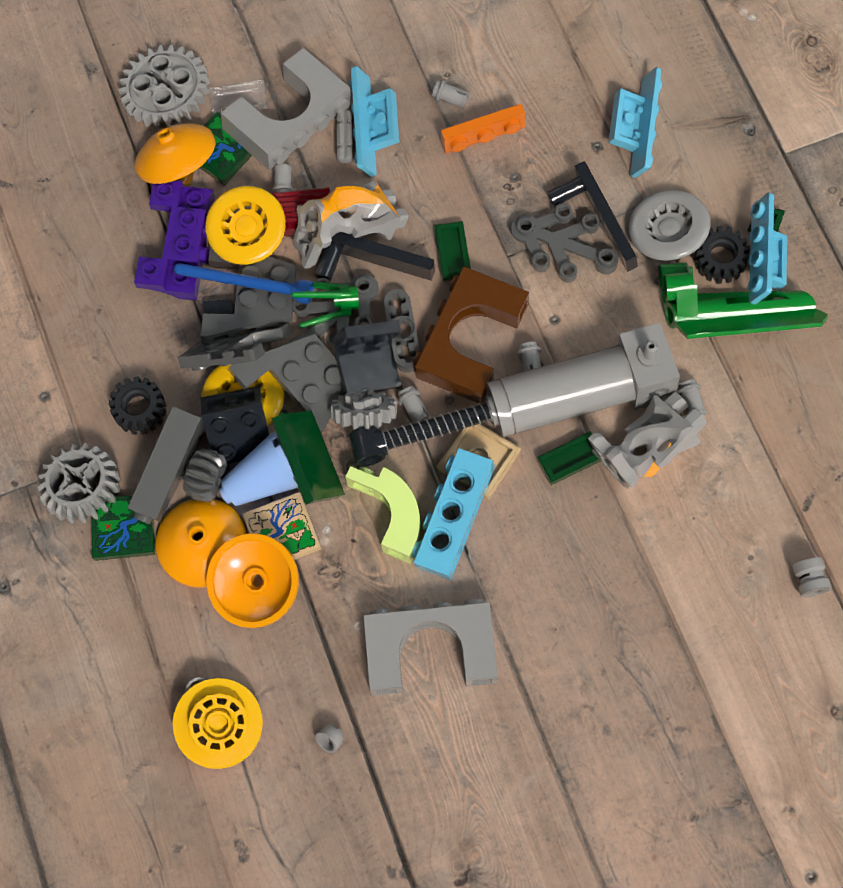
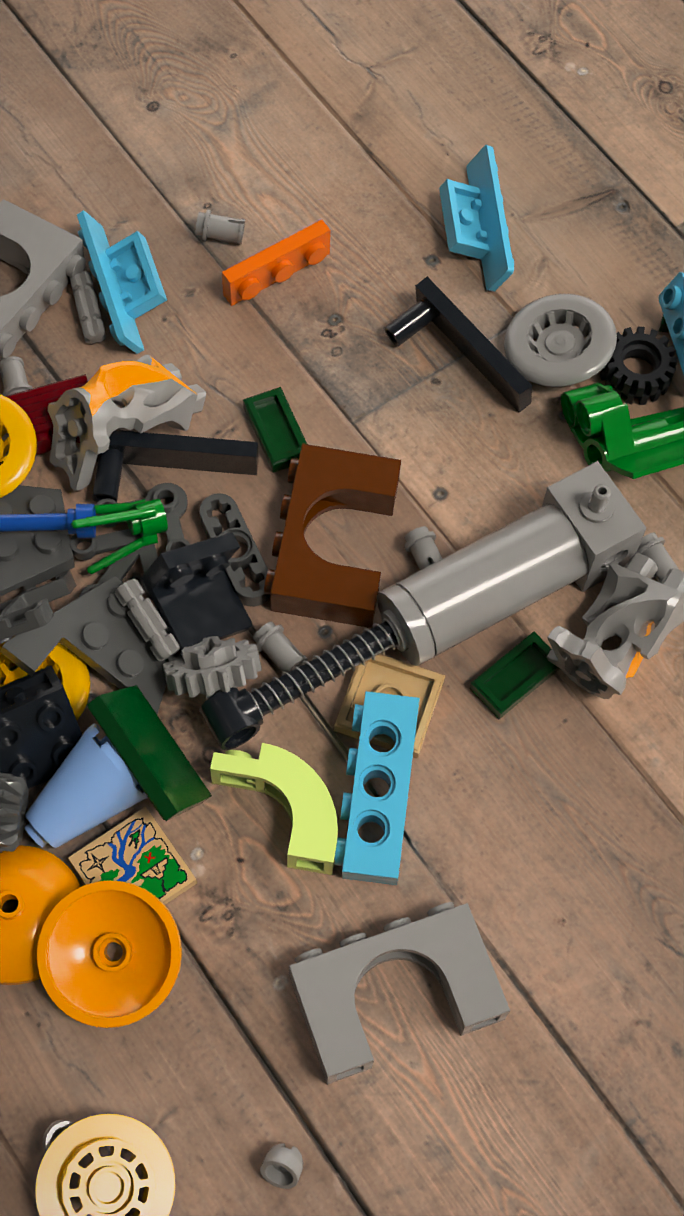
camera: 25 degrees left, 5 degrees down
(328, 368) = (147, 619): none -> light grey axle
(561, 240) = (421, 389): dark grey plant -> none

